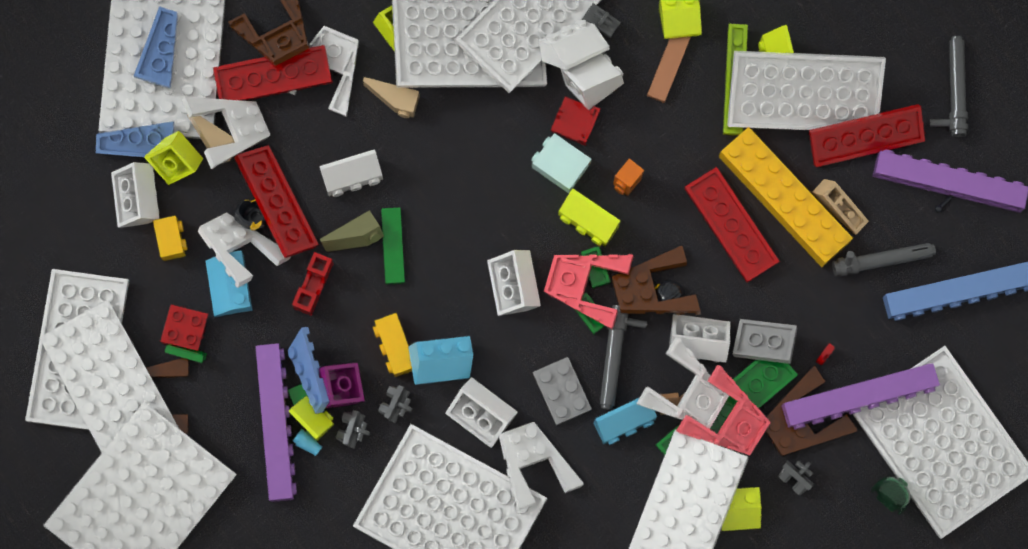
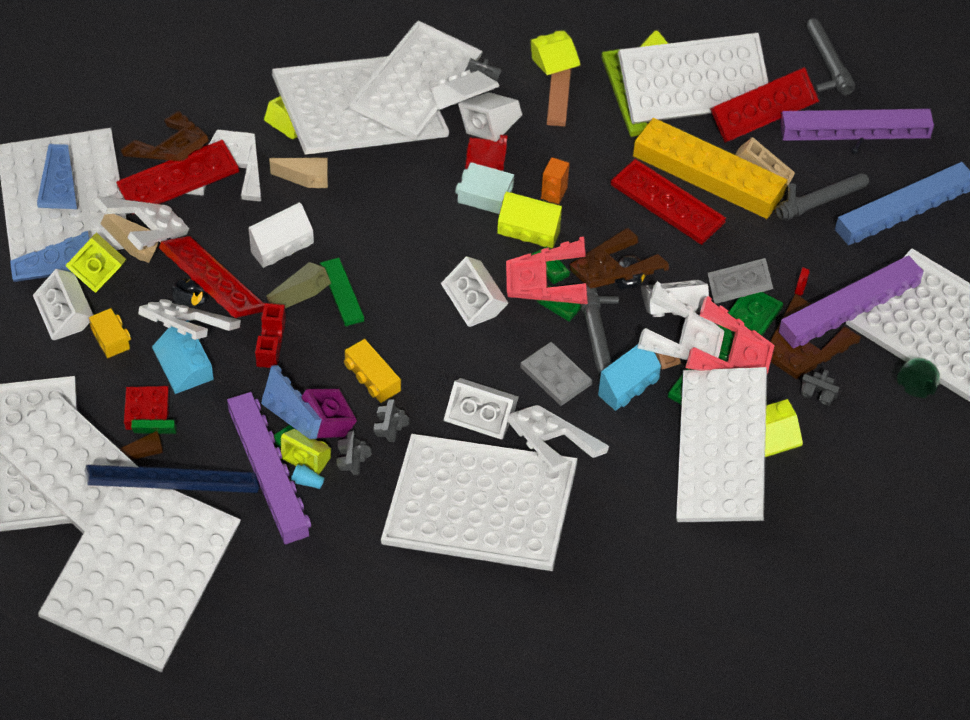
camera: 15 degrees left, 25 degrees down
(184, 423) = (171, 478): none -> dark blue tile
(441, 360) = (424, 366): medium azure slope -> none

